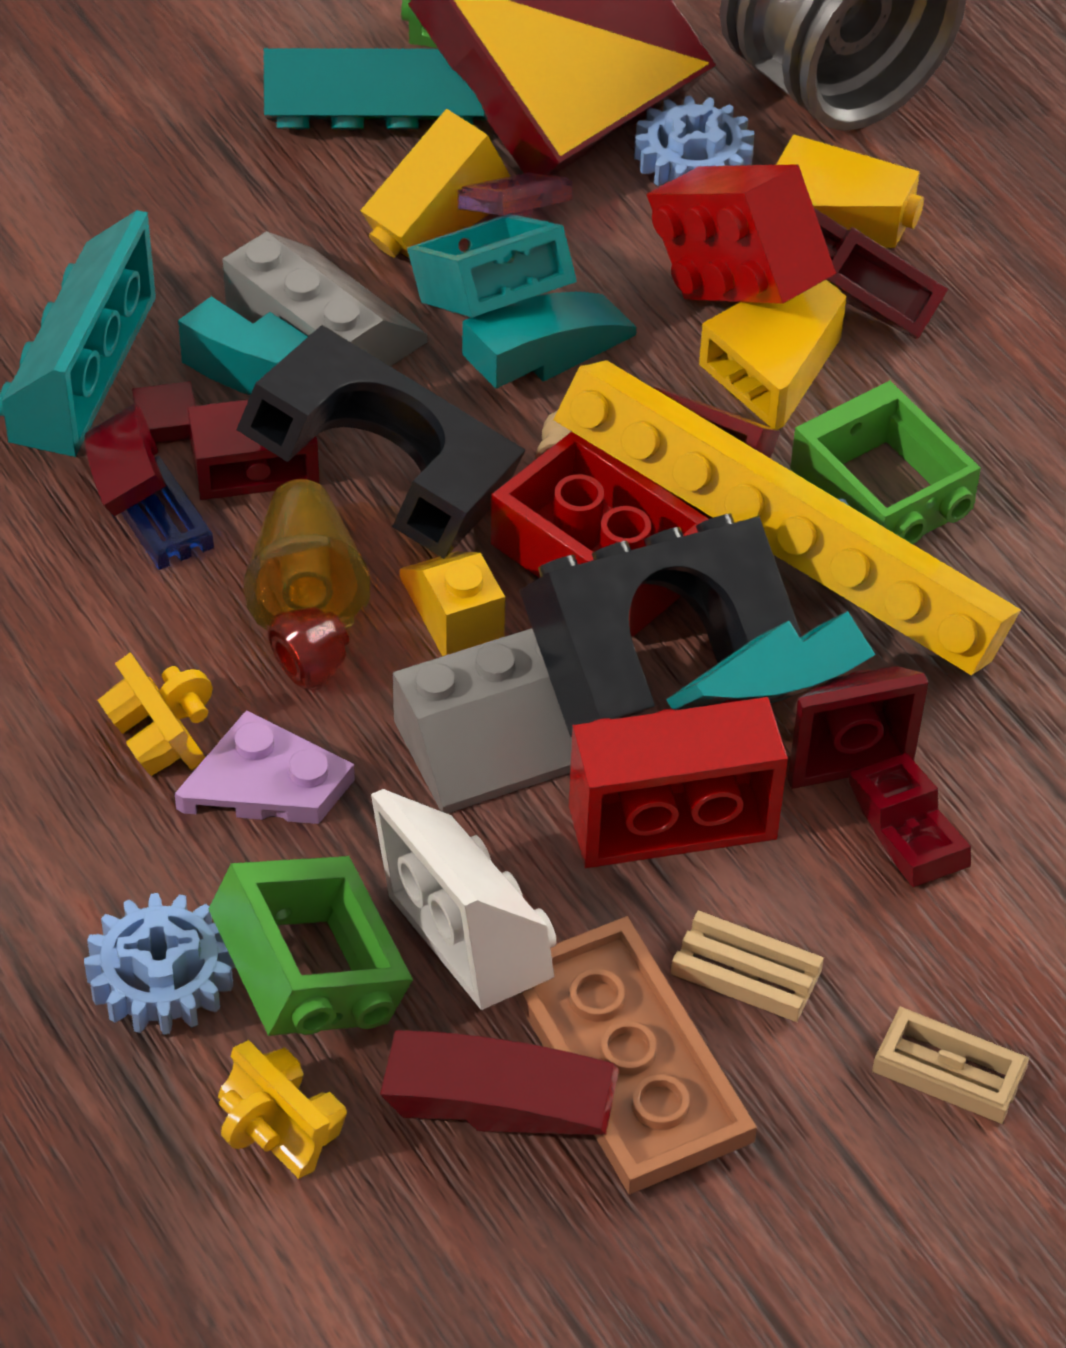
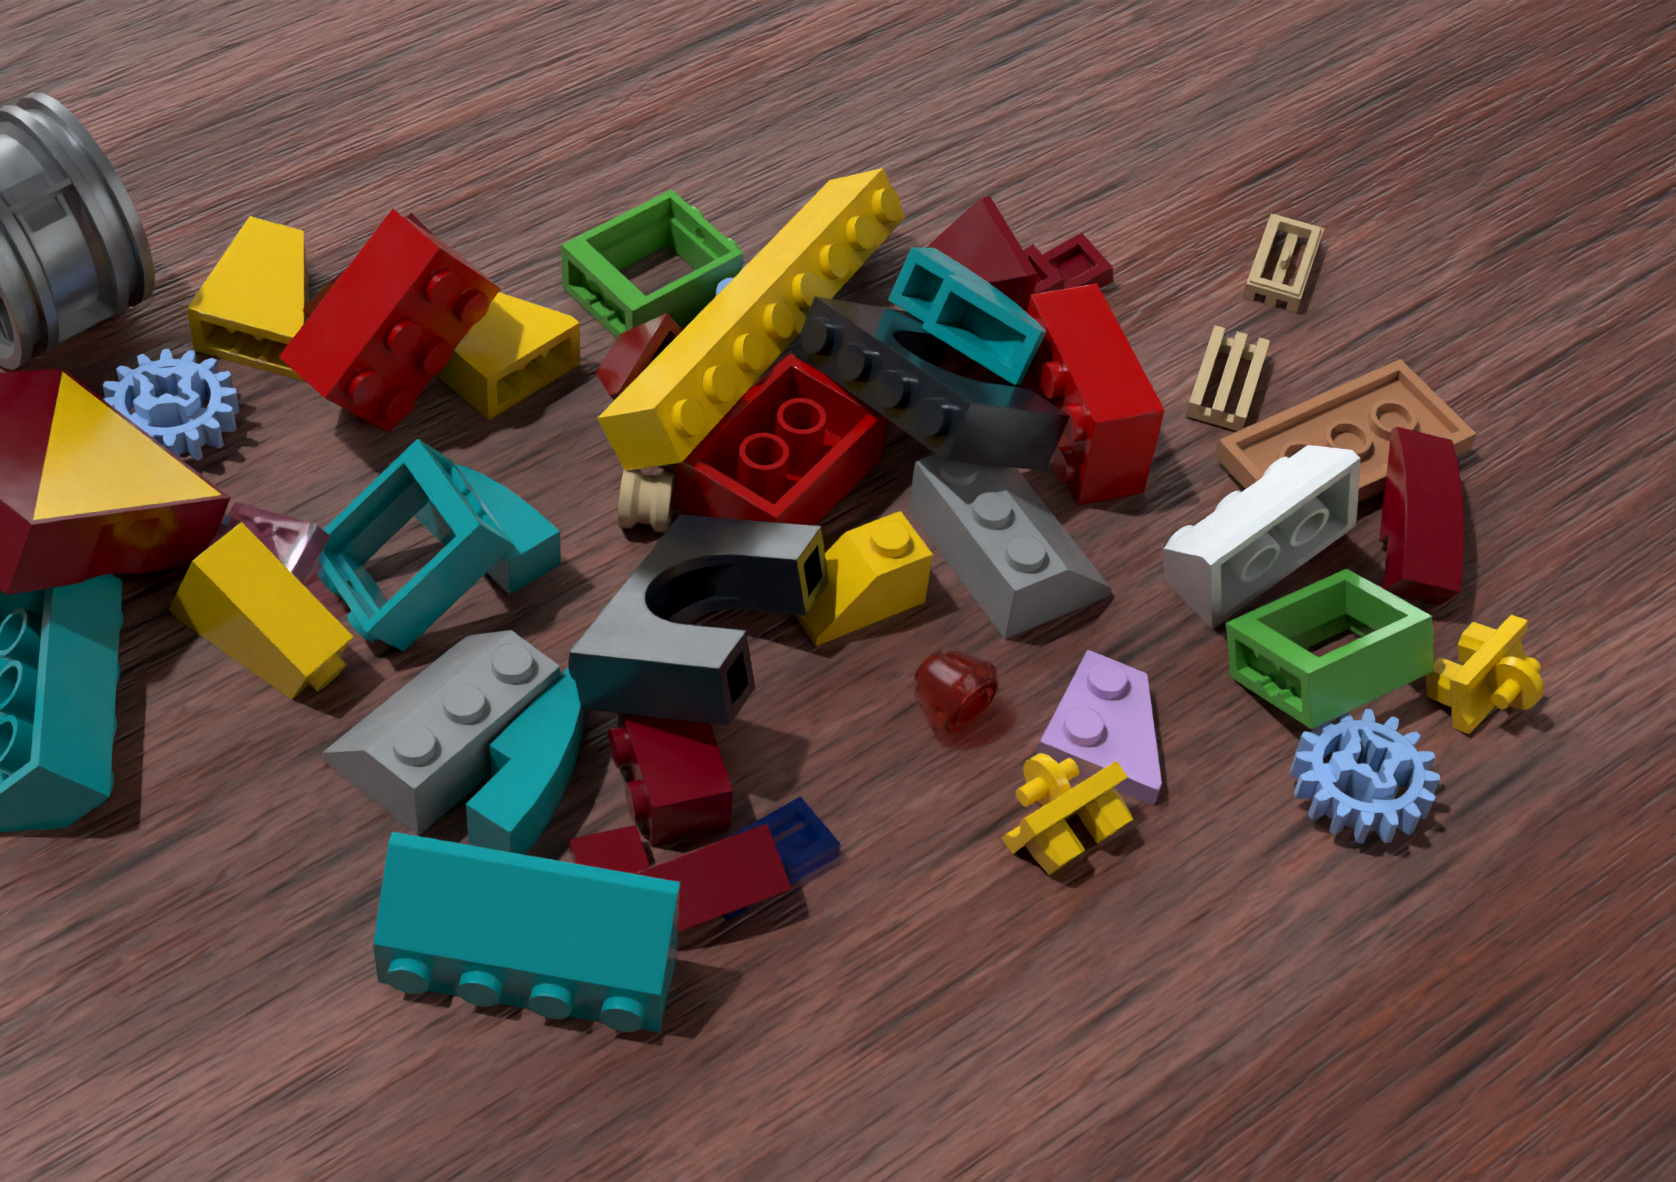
camera: 100 degrees left, 0 degrees up
(305, 558) = (840, 693): clear yellow cone -> none

